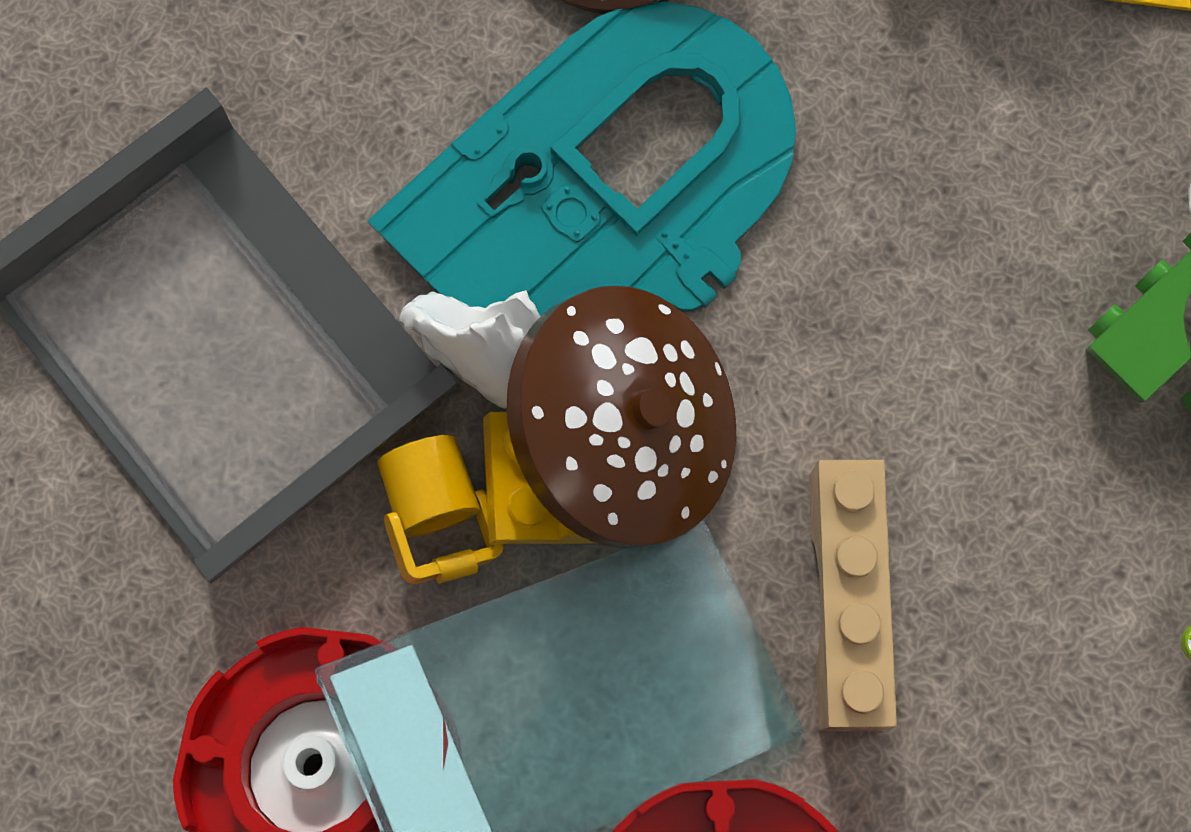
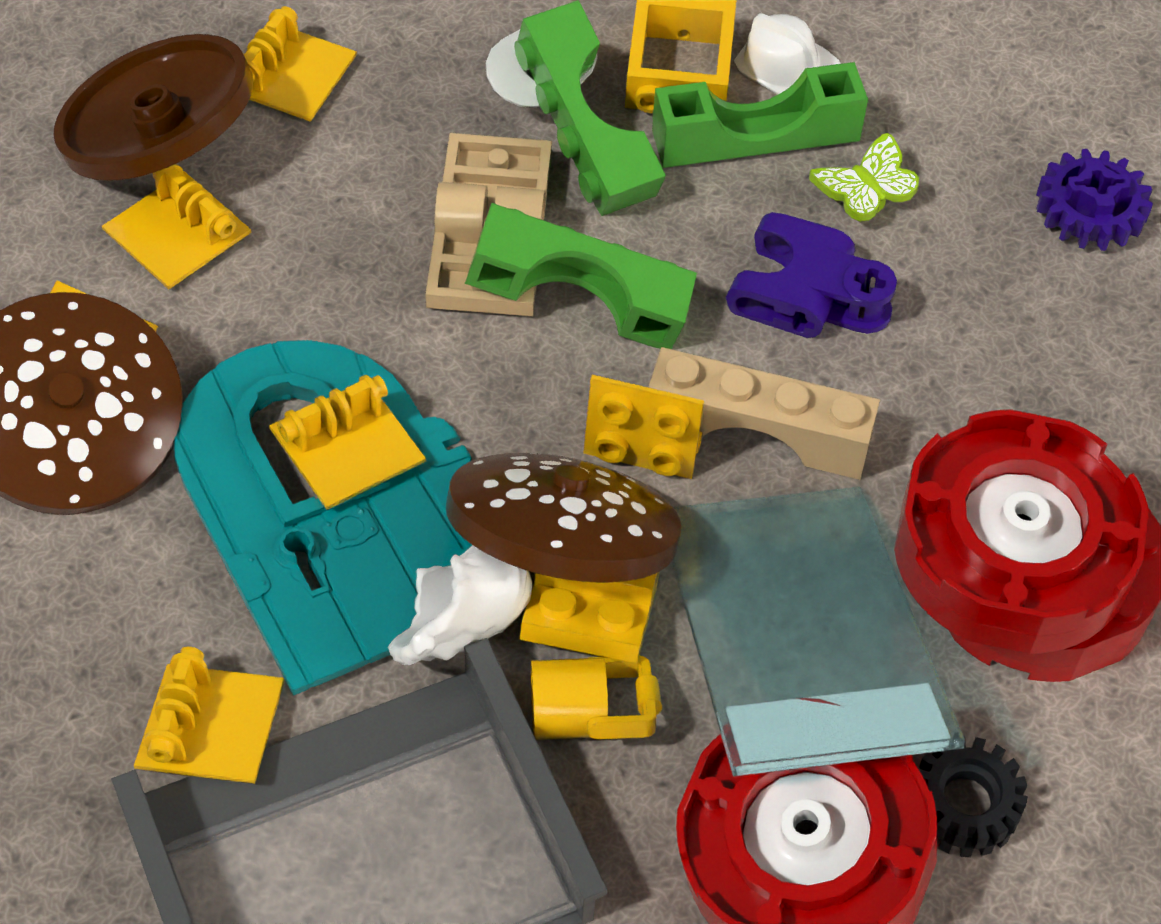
camera: 75 degrees left, 20 degrees down
(315, 158) = (209, 721): none -> yellow hinge
(664, 174) = (347, 441): none -> yellow hinge
(772, 446) = (643, 427): none -> yellow hinge
(960, 267) = (642, 292): none -> bright green arch
(1018, 228) = (475, 175): none -> tan plate
(1067, 618) = (817, 284): none -> dark purple piece

